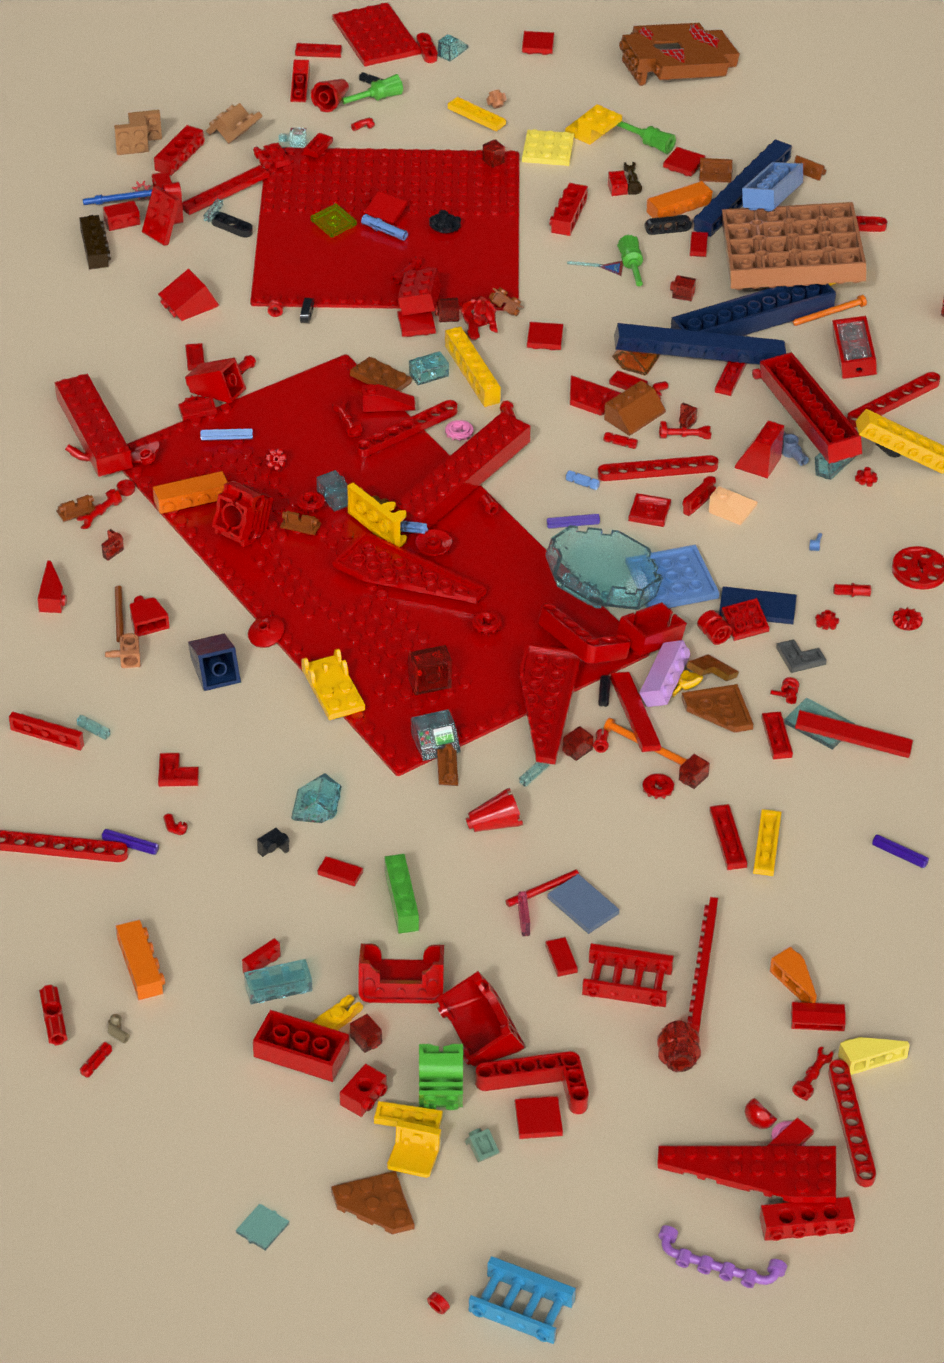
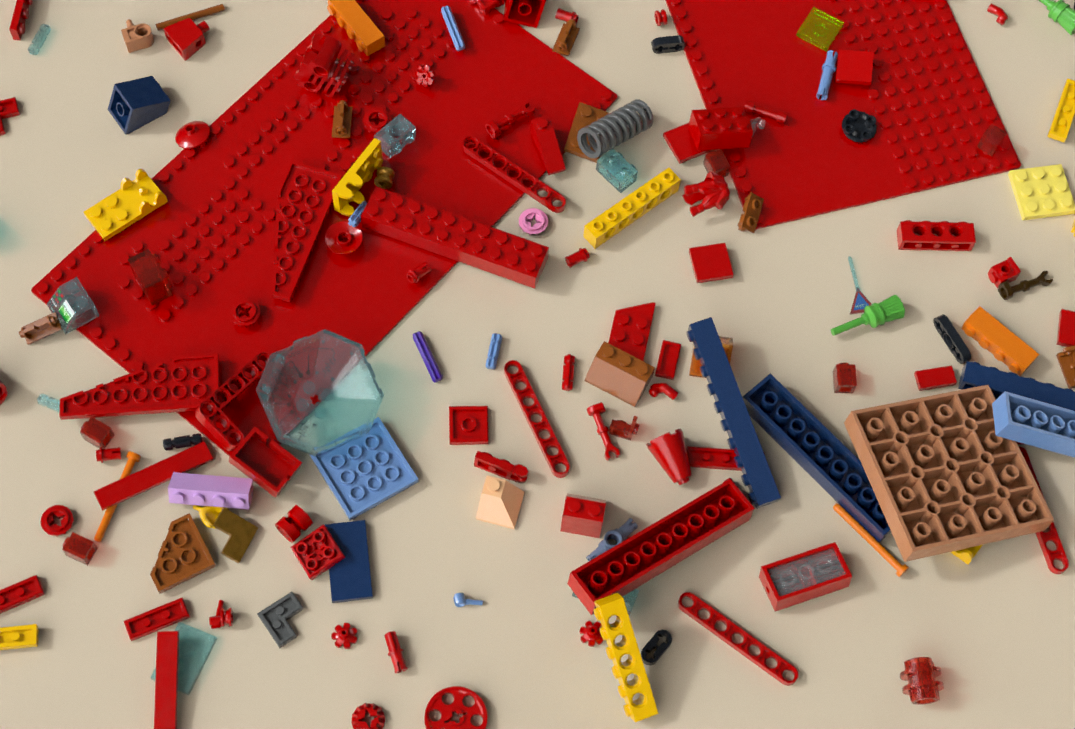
camera: 70 degrees right, 20 degrees up
(271, 371) = (566, 38): none -> dark orange hinge
(393, 350) = (615, 128): none -> dark grey piece
(723, 393) = (672, 455): none -> red cone

